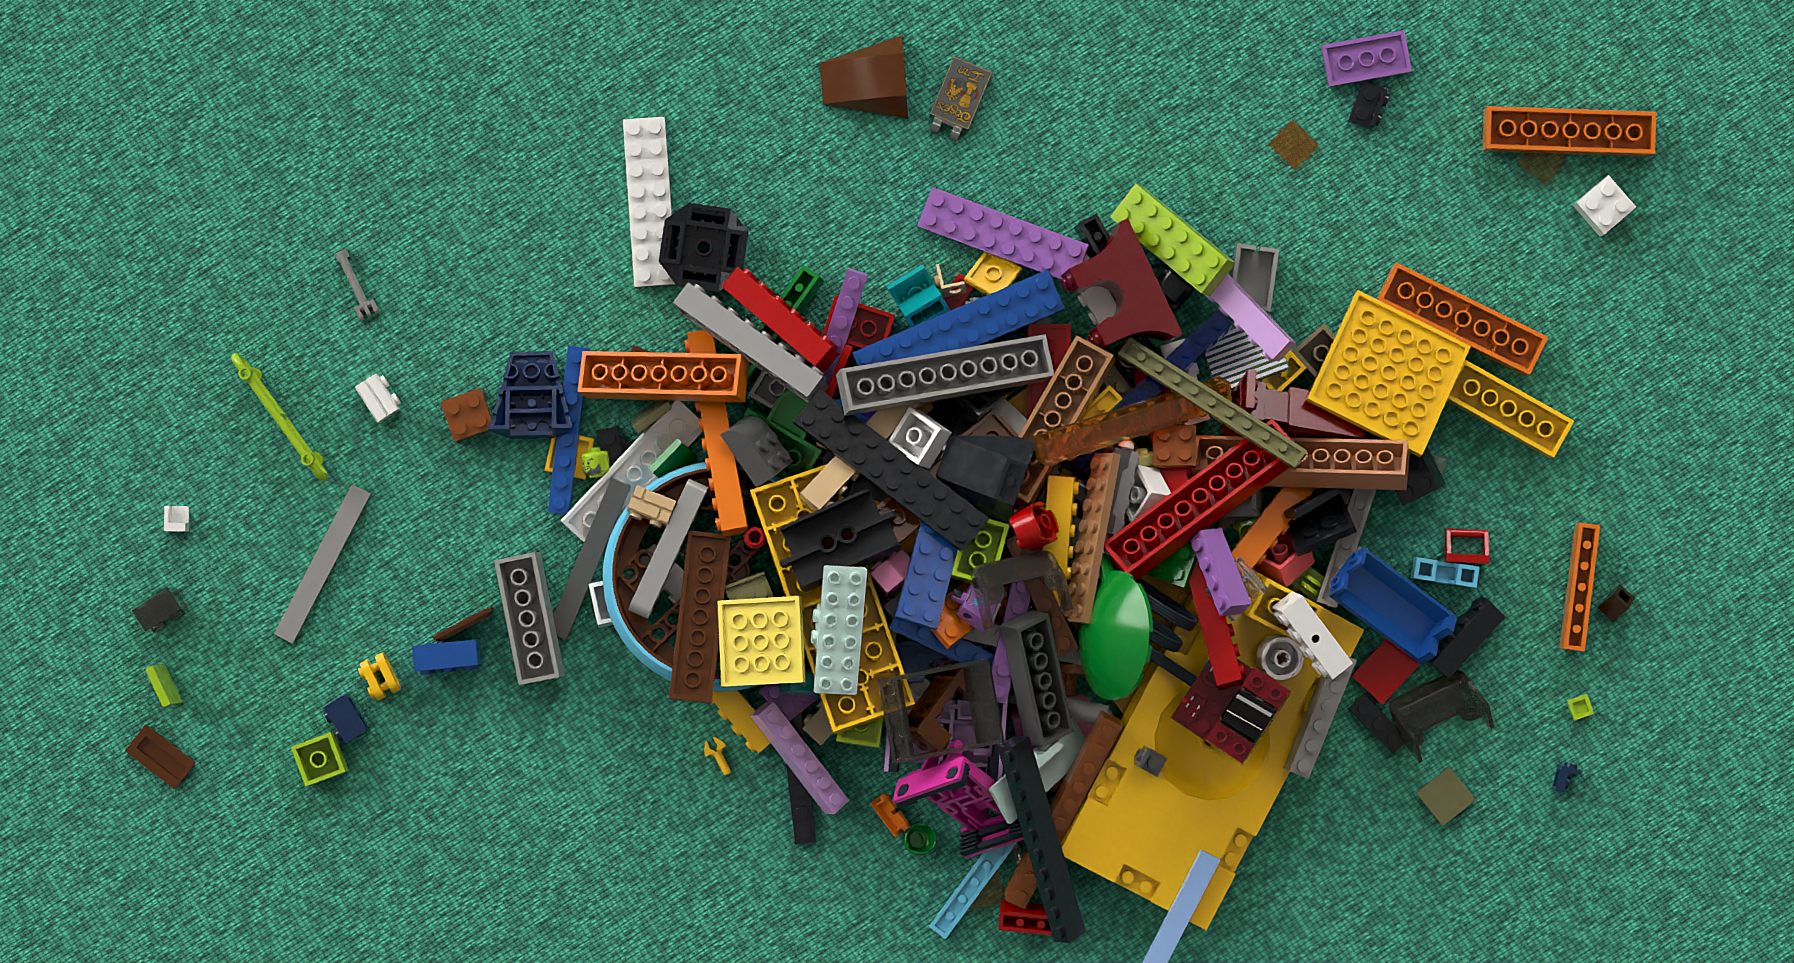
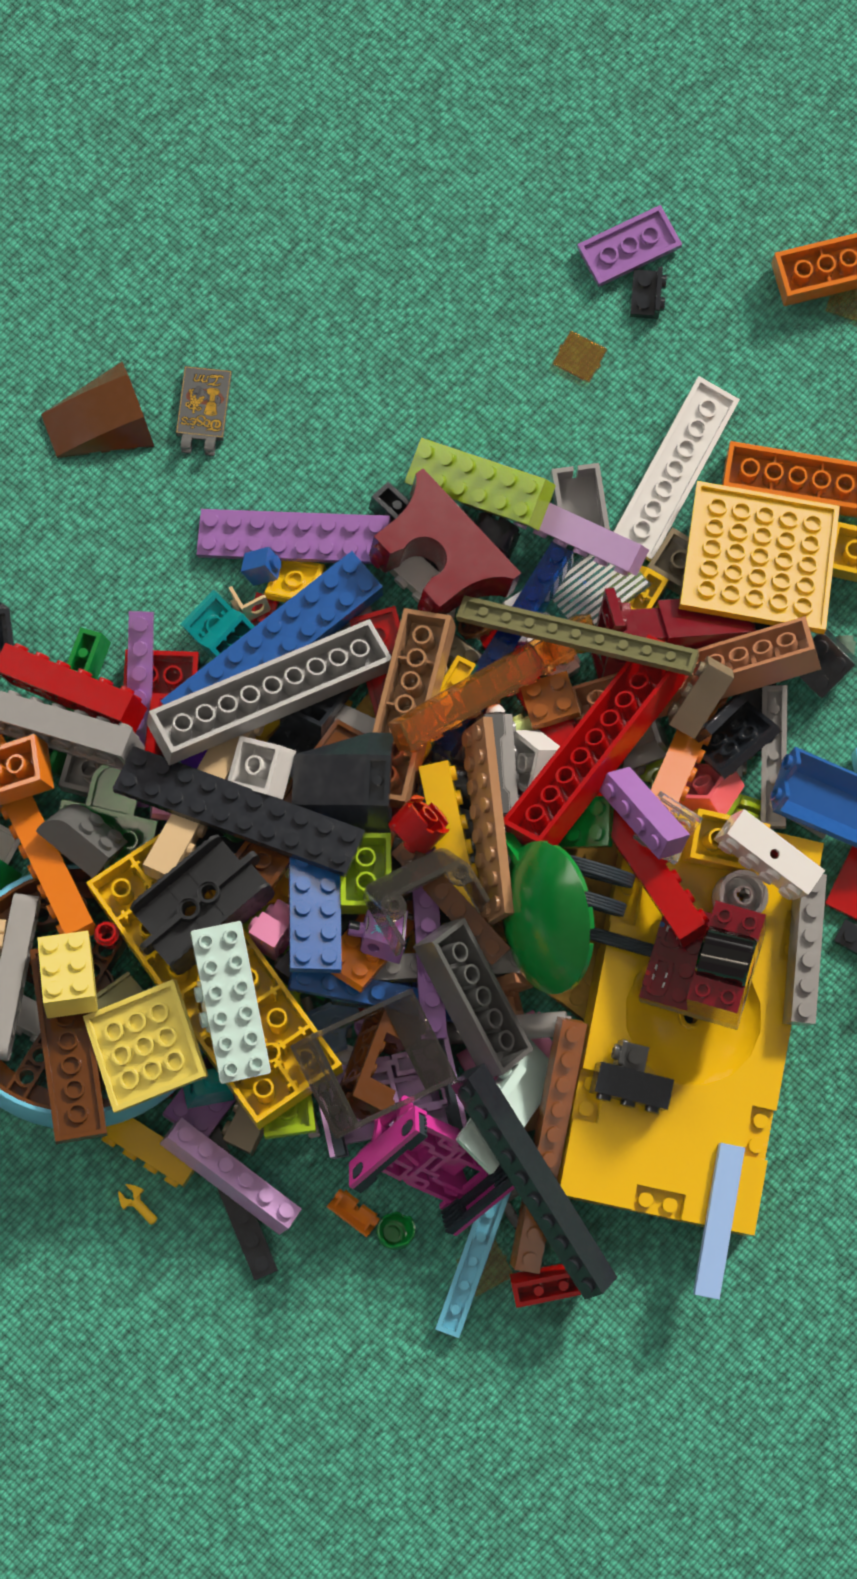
camera: 20 degrees left, 10 degrees down
(714, 563) = (67, 974): none -> light yellow brick
(968, 254) = (261, 566): none -> blue brick
(1142, 787) = (631, 1087): none -> black brick
(1298, 484) = (700, 696): none -> dark tan brick
(1343, 269) = (676, 465): none -> white plate

